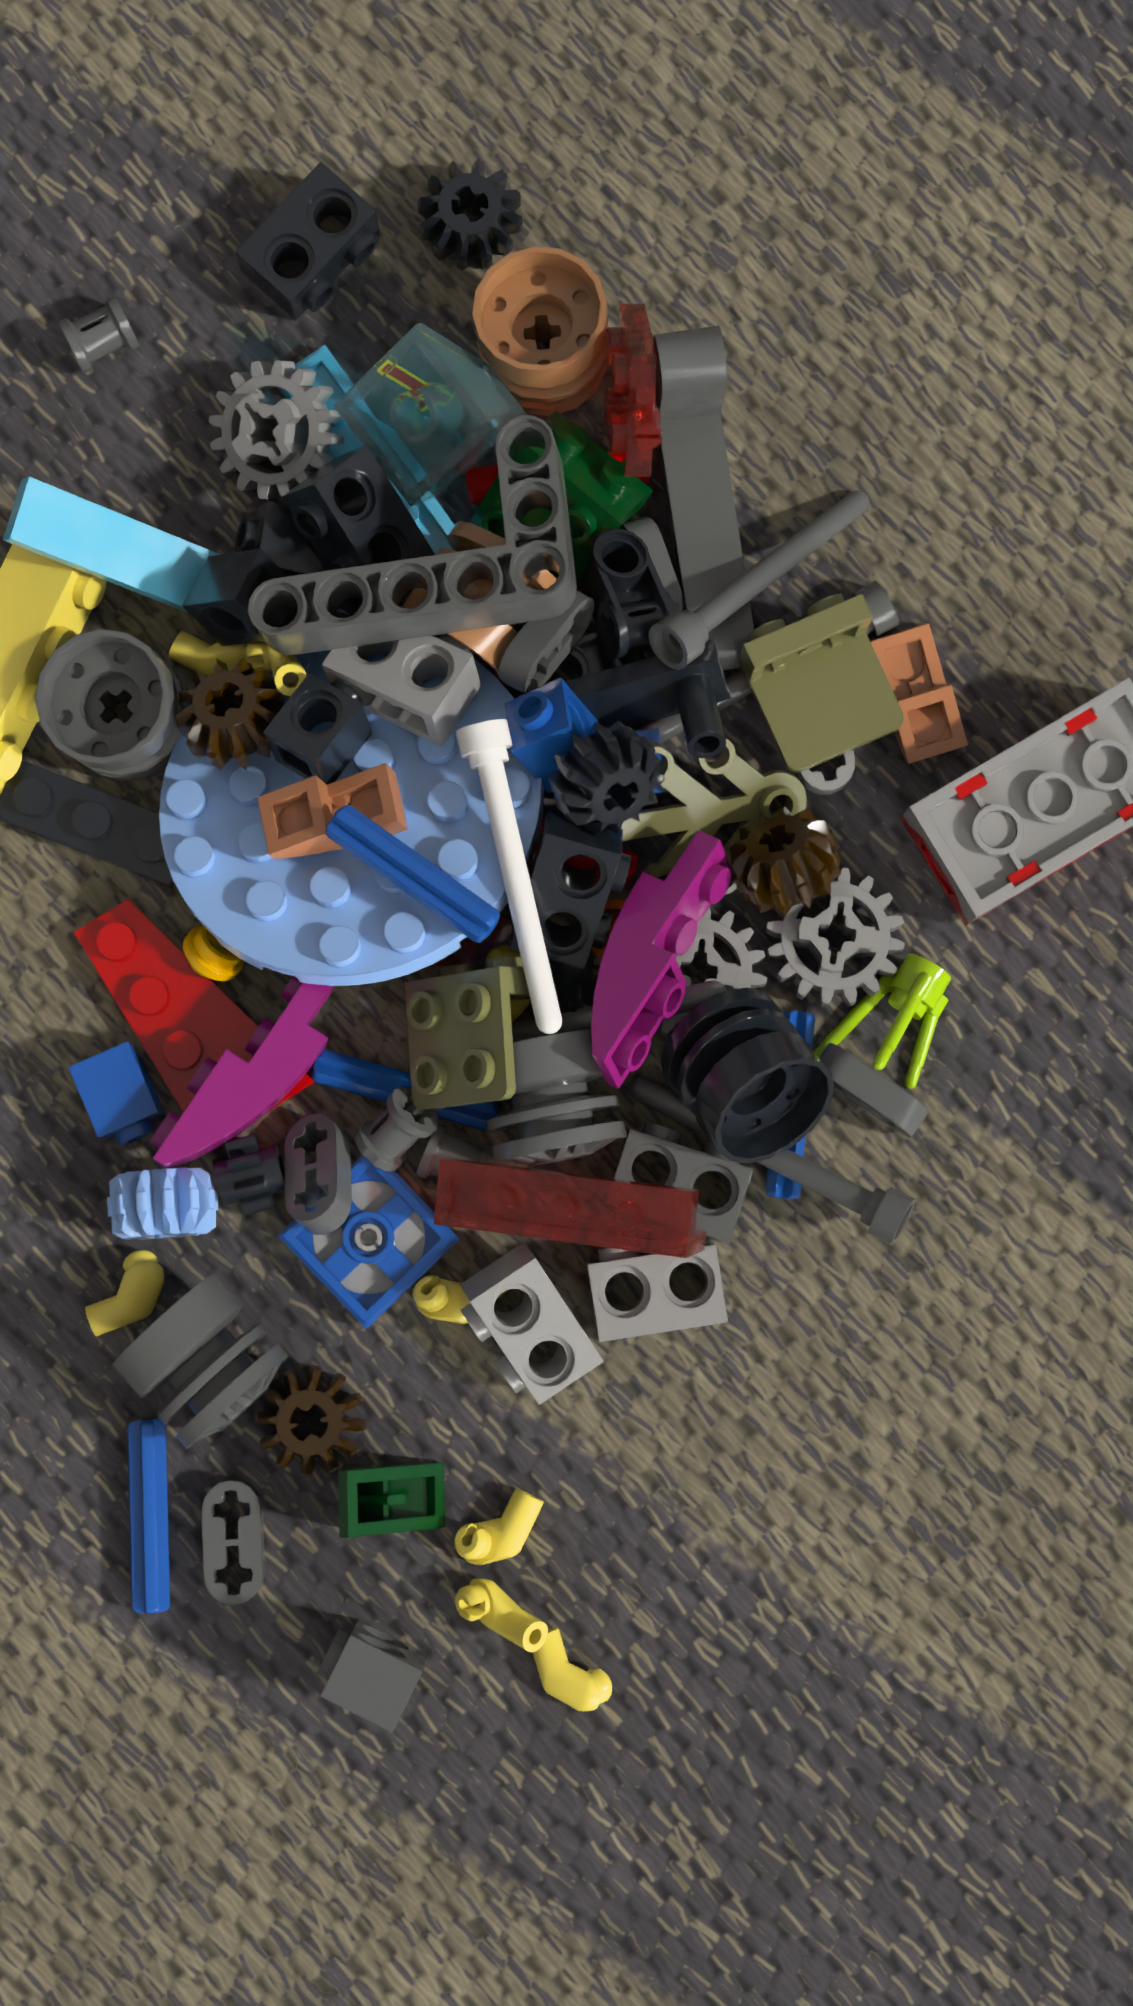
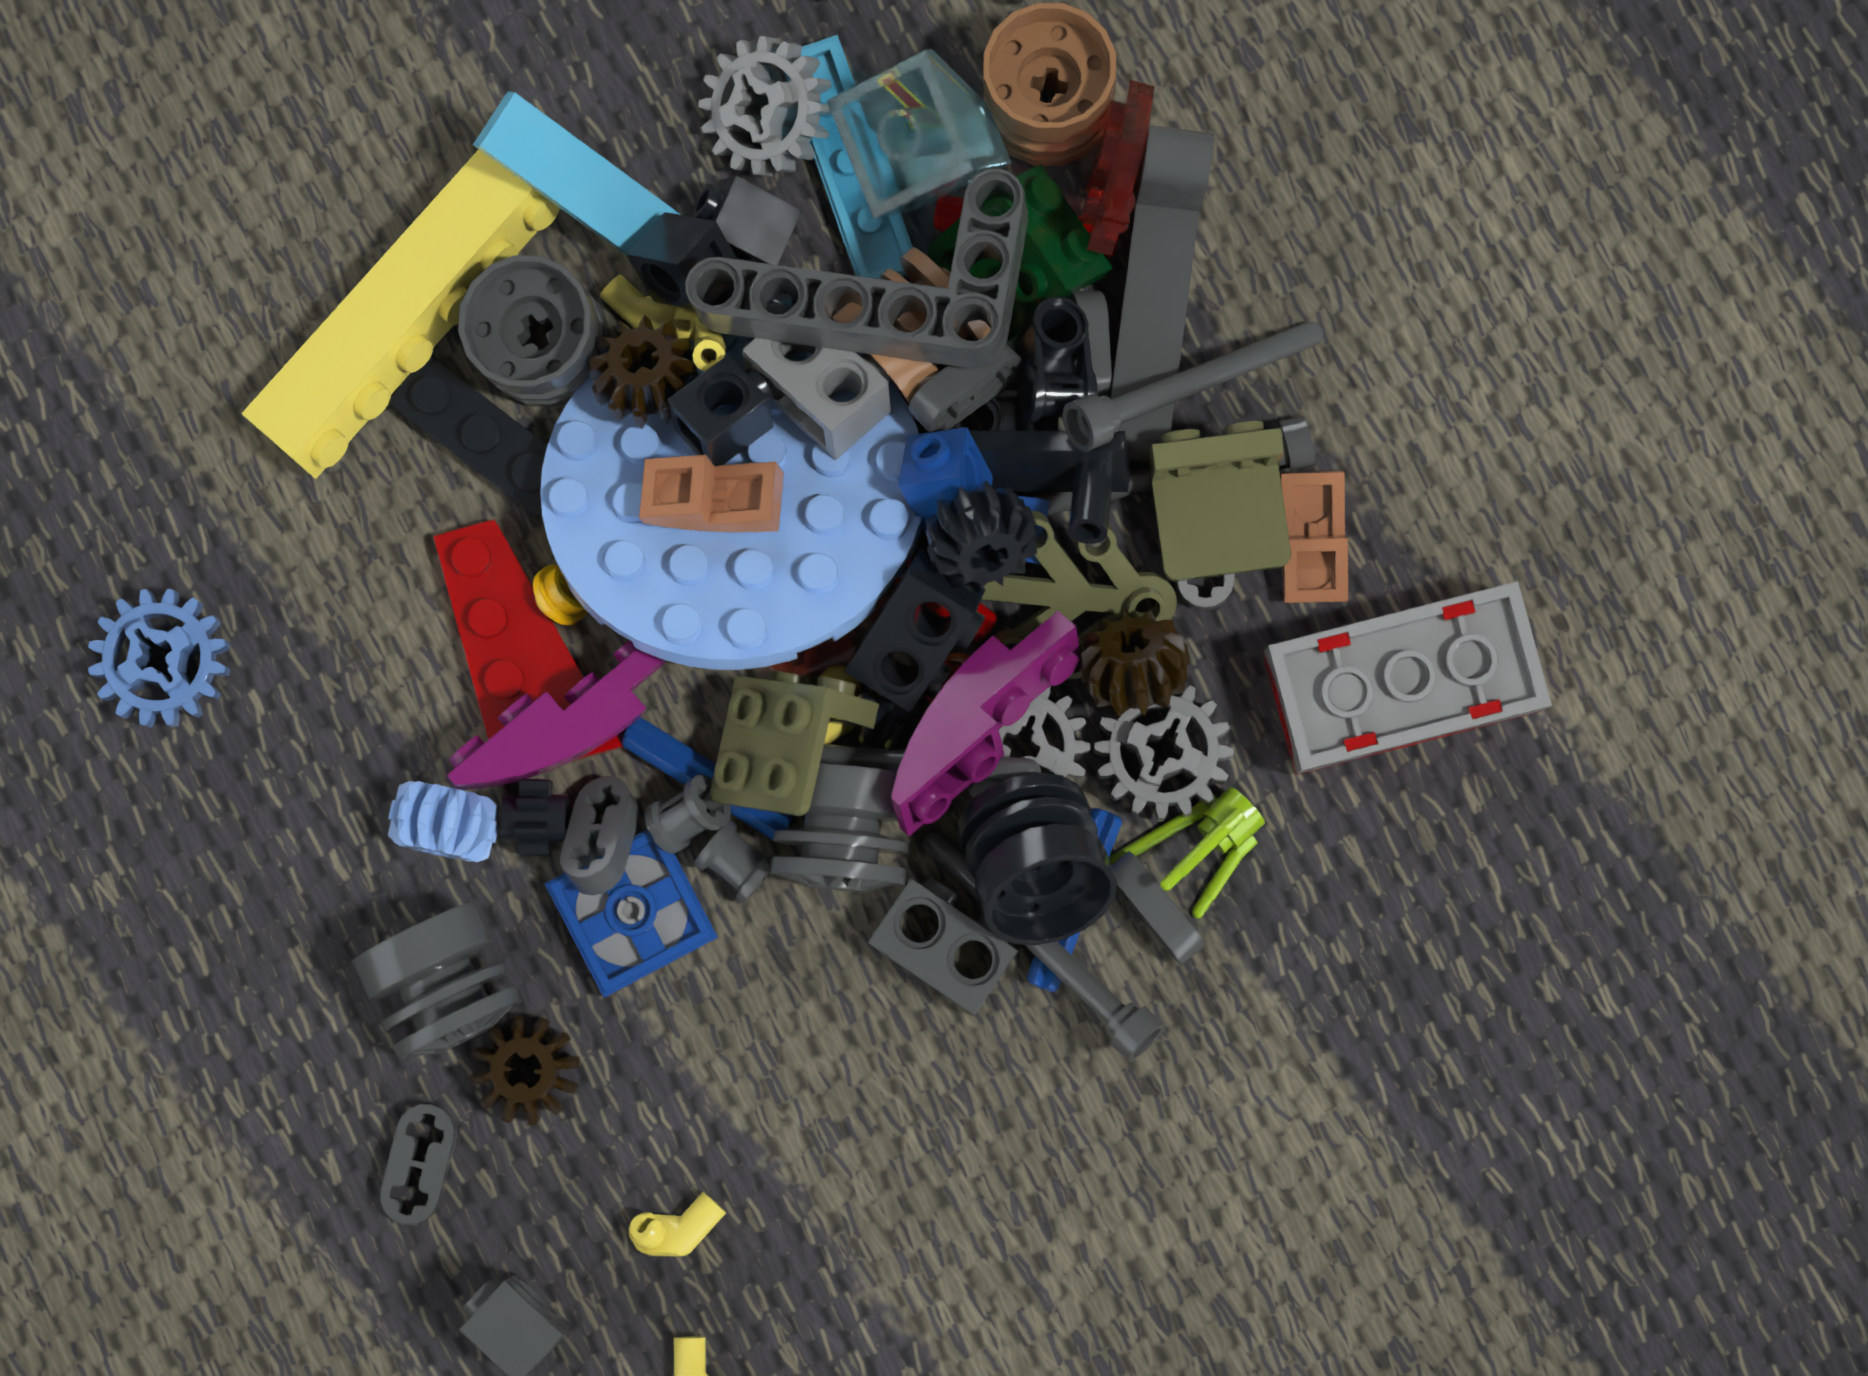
camera: 20 degrees right, 0 degrees up
(118, 1094) = (431, 704): blue brick -> none
(135, 1296) = (392, 902): light yellow arm -> none
(148, 1516) = (345, 1116): blue axle -> none
(368, 517) = (829, 218): black brick -> none
(390, 1498) = (580, 1166): dark green slope -> none
(412, 873) = (770, 575): blue axle -> none
(441, 1299) = (699, 996): light yellow arm -> none
(486, 749) = (875, 478): white piece -> none
(498, 1612) = (653, 1307): light yellow arm -> none
(537, 1319) = (772, 1034): light grey brick -> none
(568, 1207) = (828, 936): clear red fence -> none
(658, 1307) = (889, 1058): light grey brick -> none

